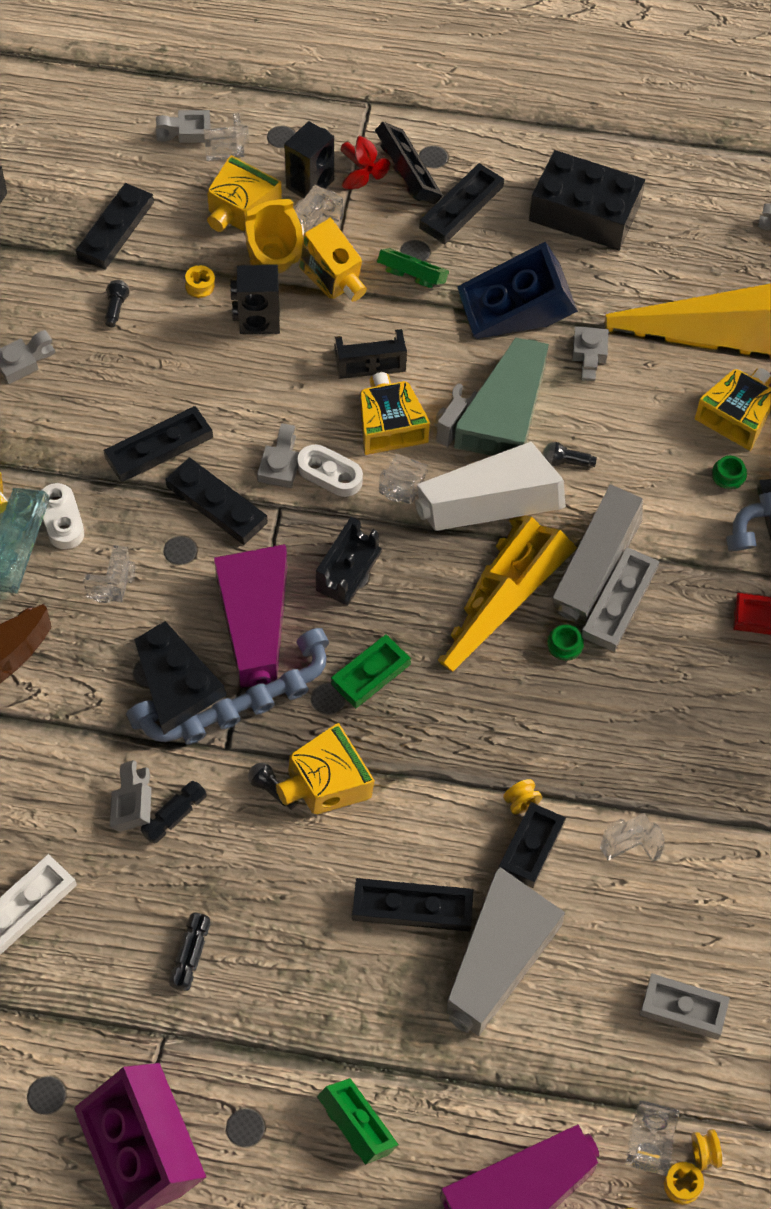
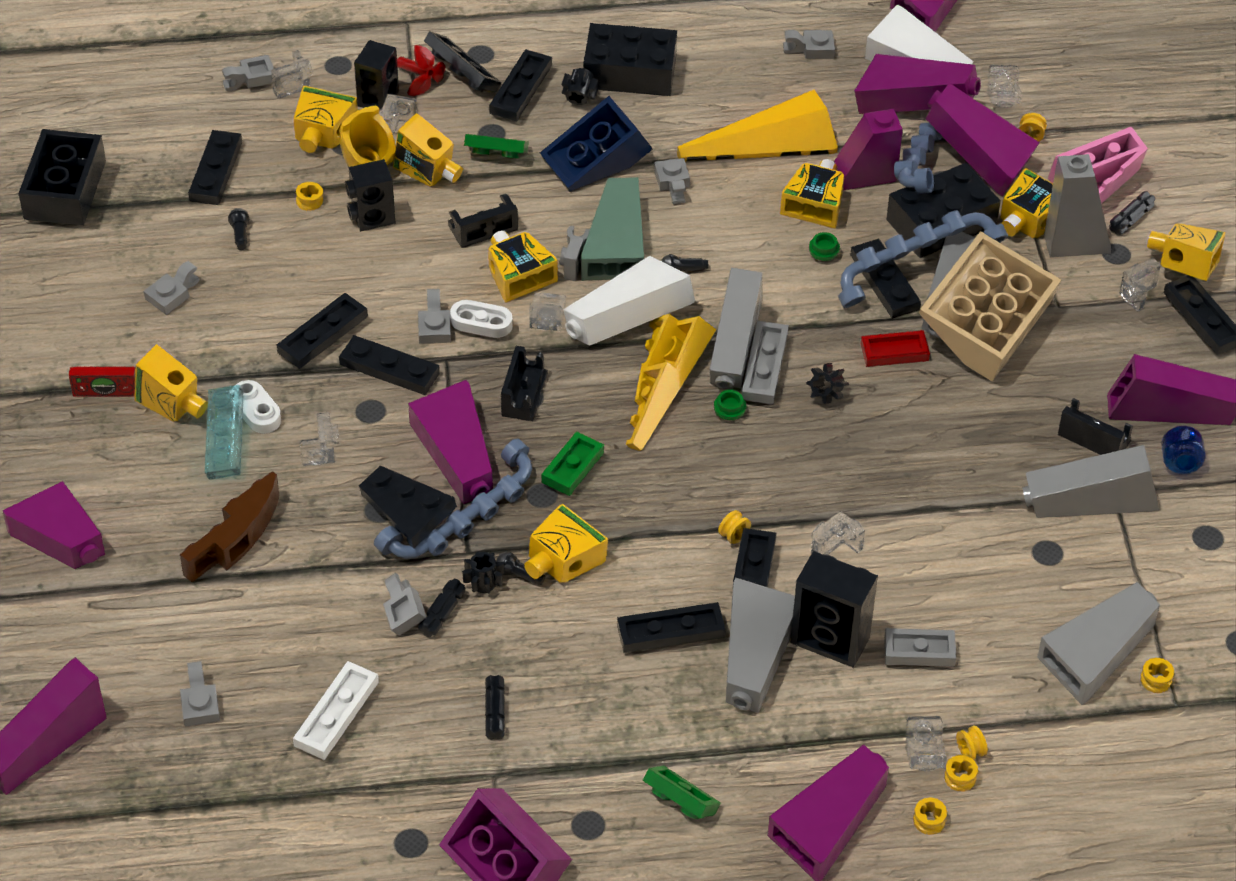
camera: 15 degrees left, 10 degrees down
(230, 772) = (483, 572): none -> black gear
(522, 219) = (579, 86): none -> black gear
(595, 941) = (833, 608): none -> black brick
(680, 644) = (833, 376): none -> black gear

